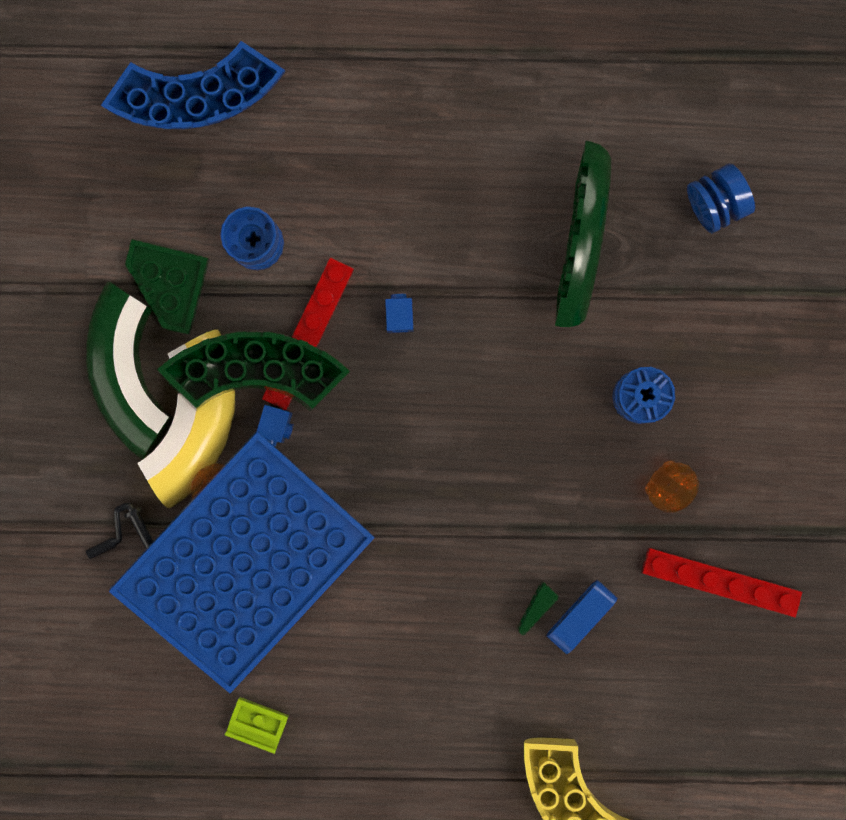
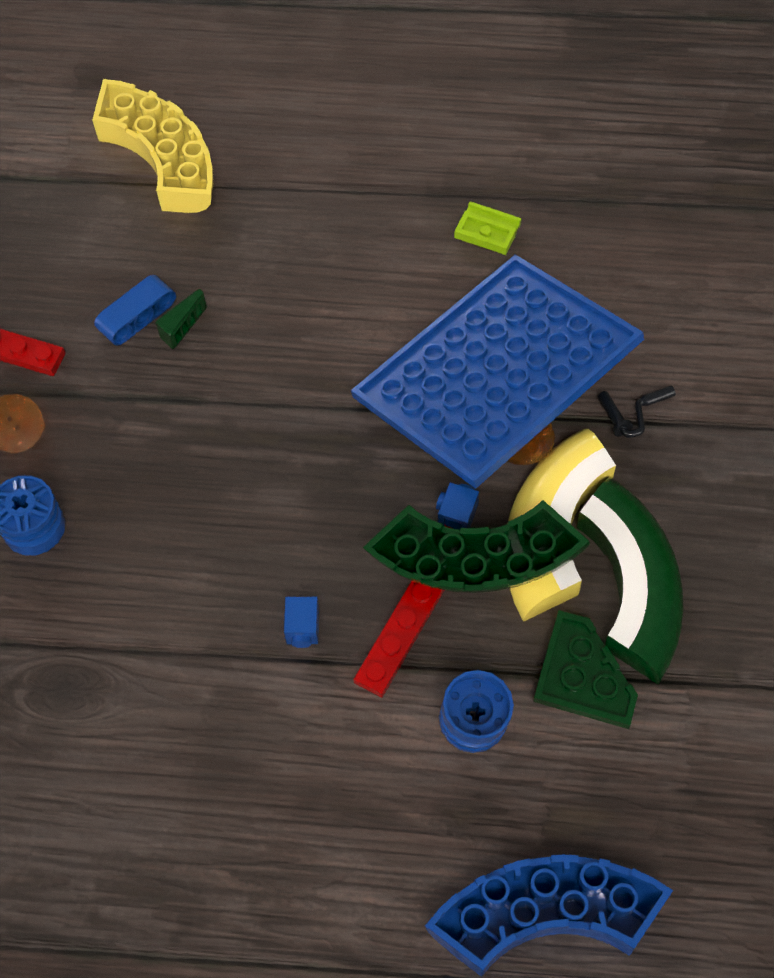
camera: 175 degrees left, 25 degrees down
(584, 236) = (60, 694): dark green brick -> none

